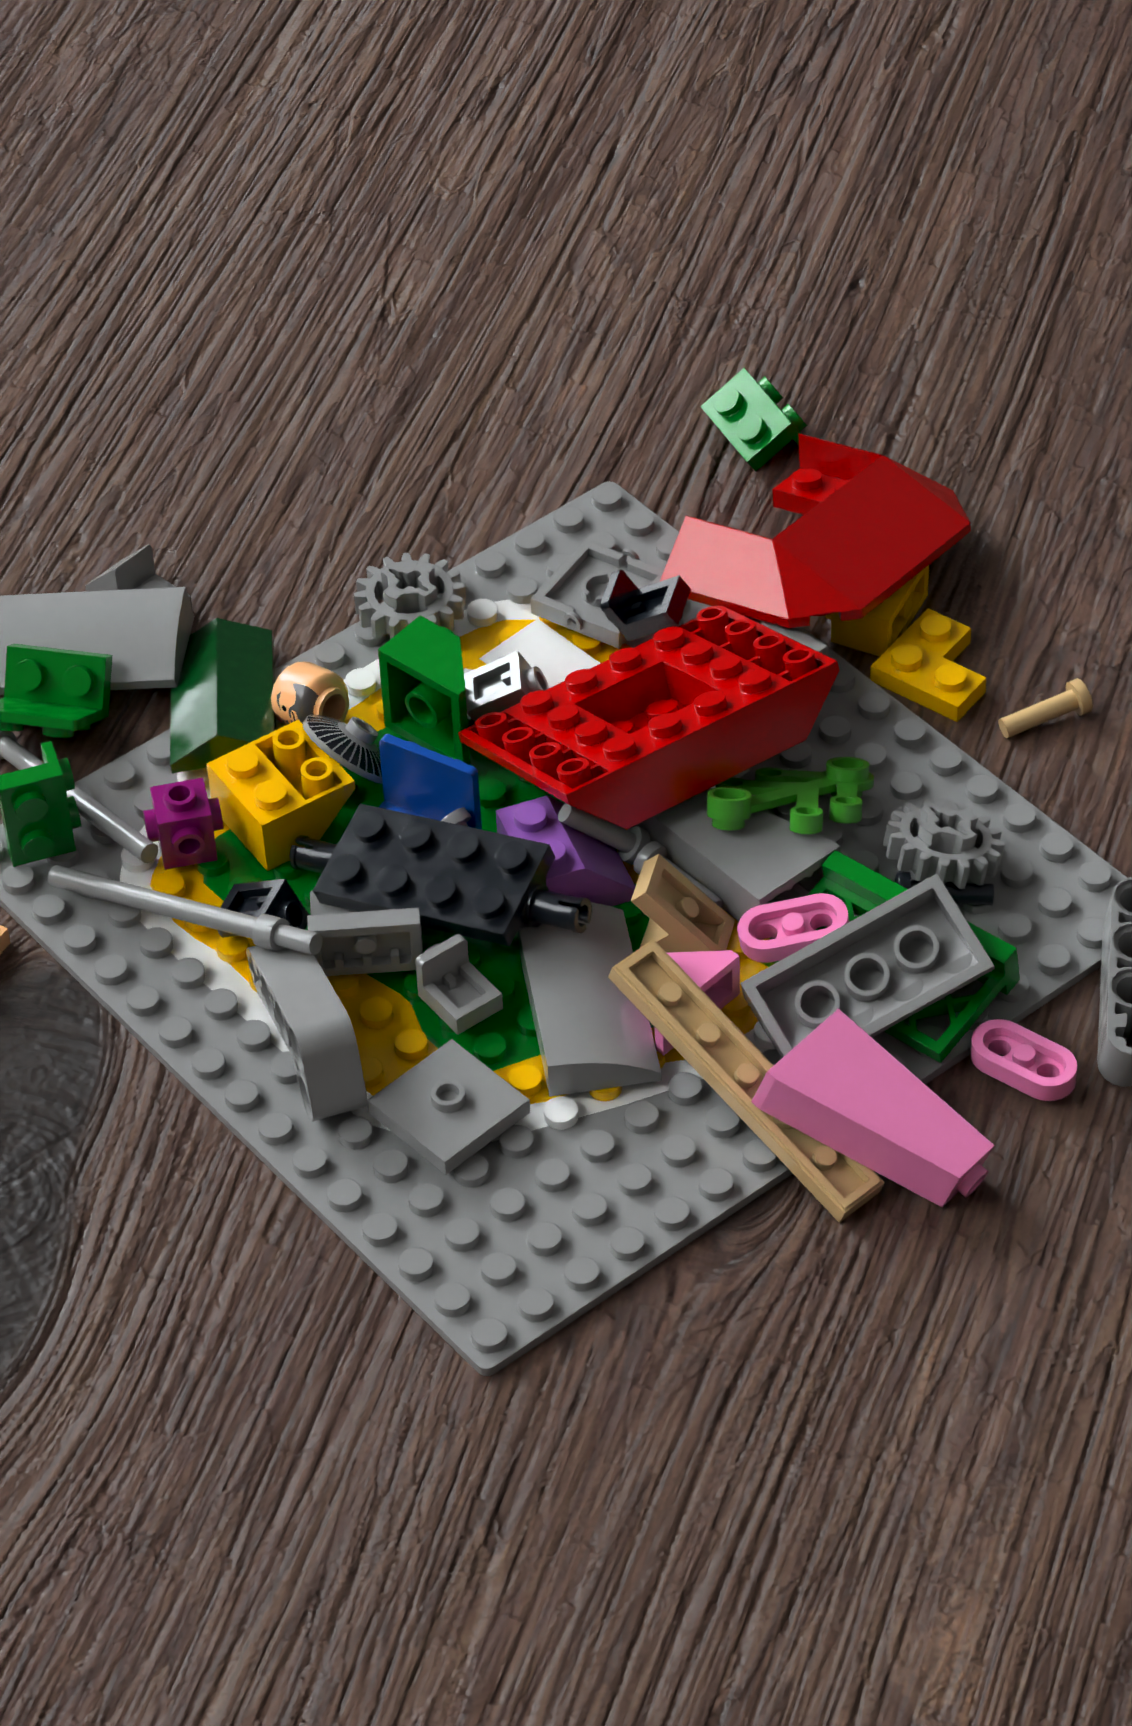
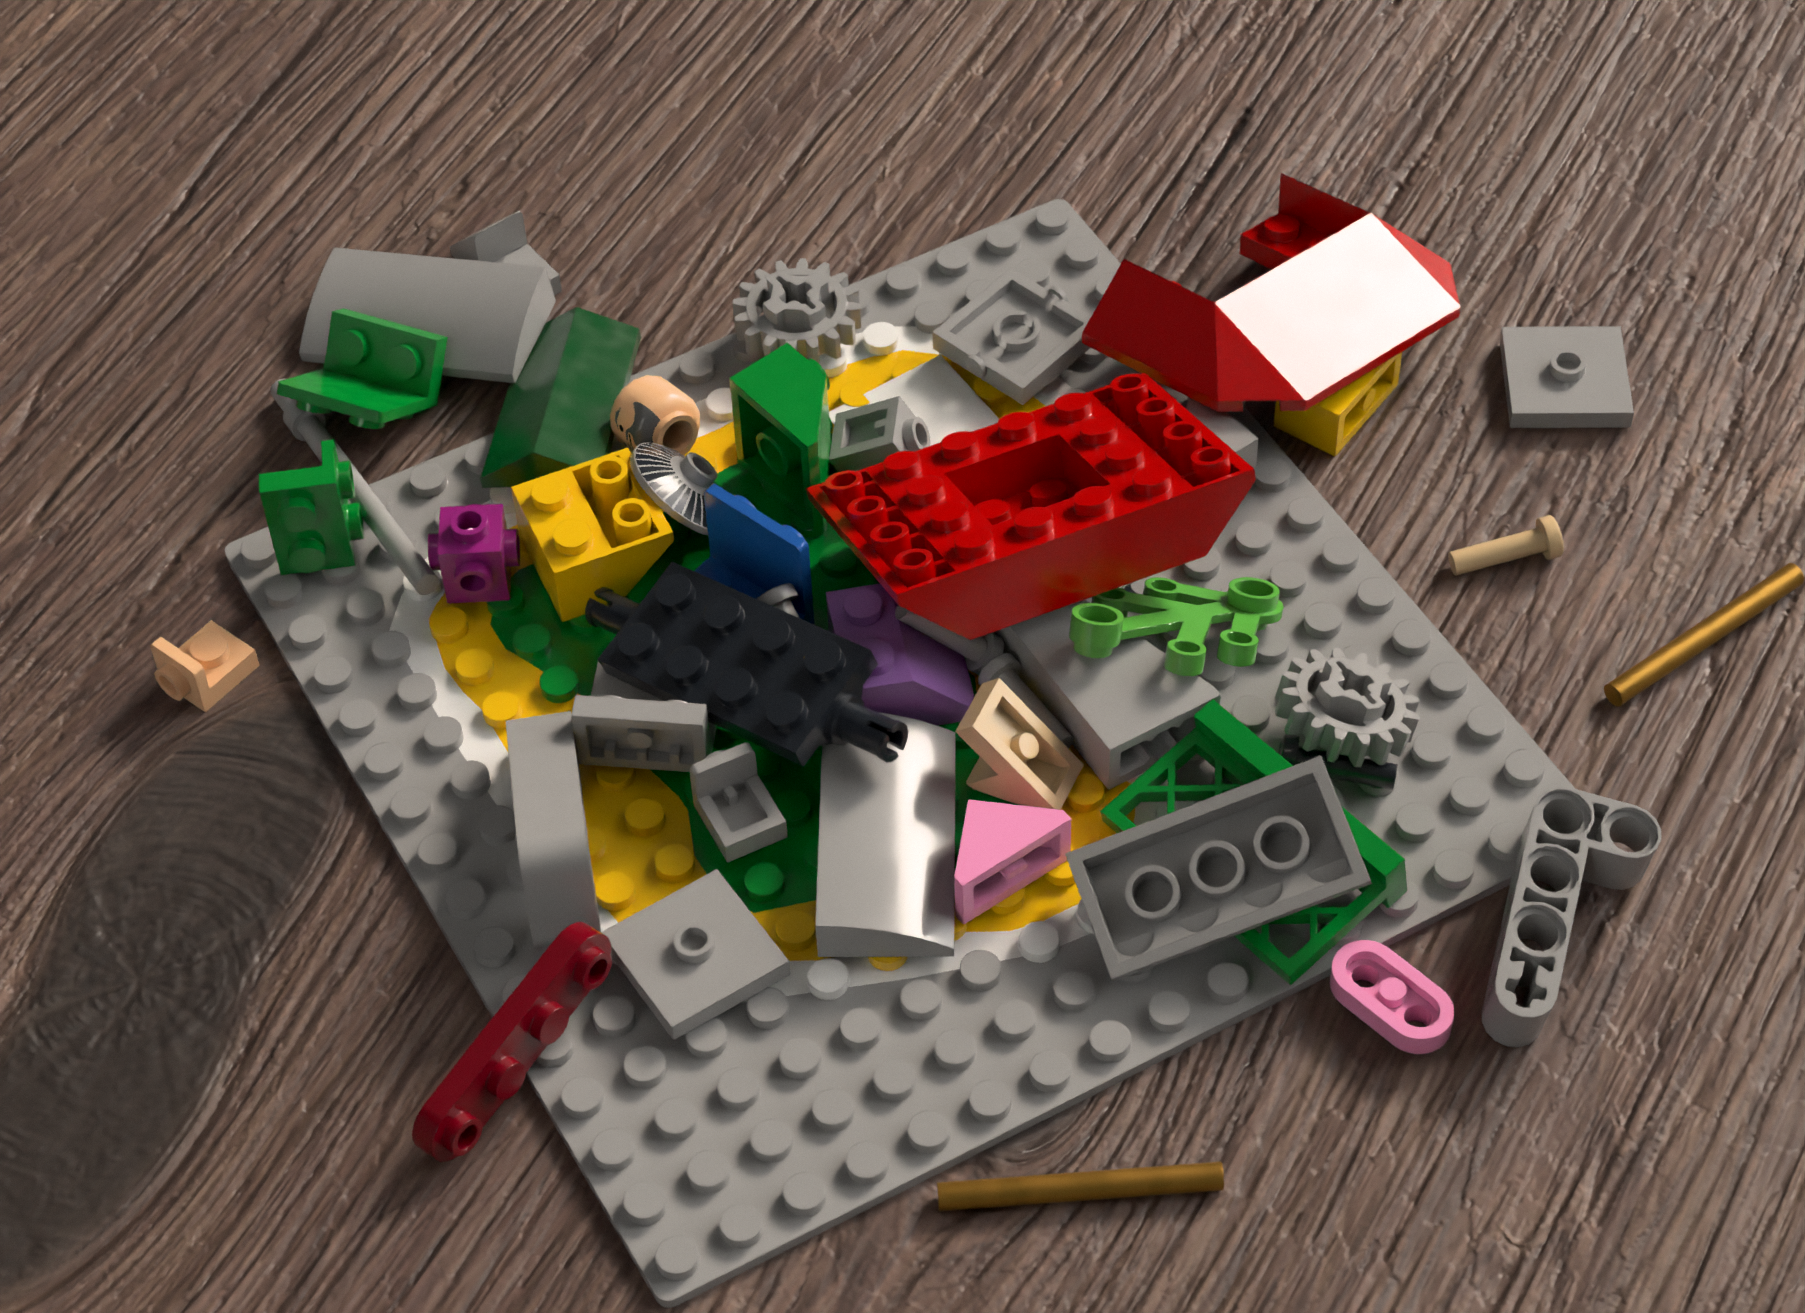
camera: 10 degrees right, 5 degrees up
(265, 931) = (524, 705): light grey bar -> none
(266, 897) = (538, 674): black bracket -> none
(315, 1191) = (512, 1042): none -> dark red plate
(644, 609) = (1057, 365): black bracket -> none
(735, 1072) = (1048, 980): tan tile -> none
(751, 418) = (1239, 145): bracket -> none
(790, 923) = (1145, 787): bright pink plate -> none
(802, 1236) = (1080, 1186): none -> pearl gold bar
(874, 1111) = (1191, 1044): bright pink slope -> none
(923, 669) = (1372, 474): yellow plate -> none
(1066, 570) = (1566, 377): none -> light grey plate

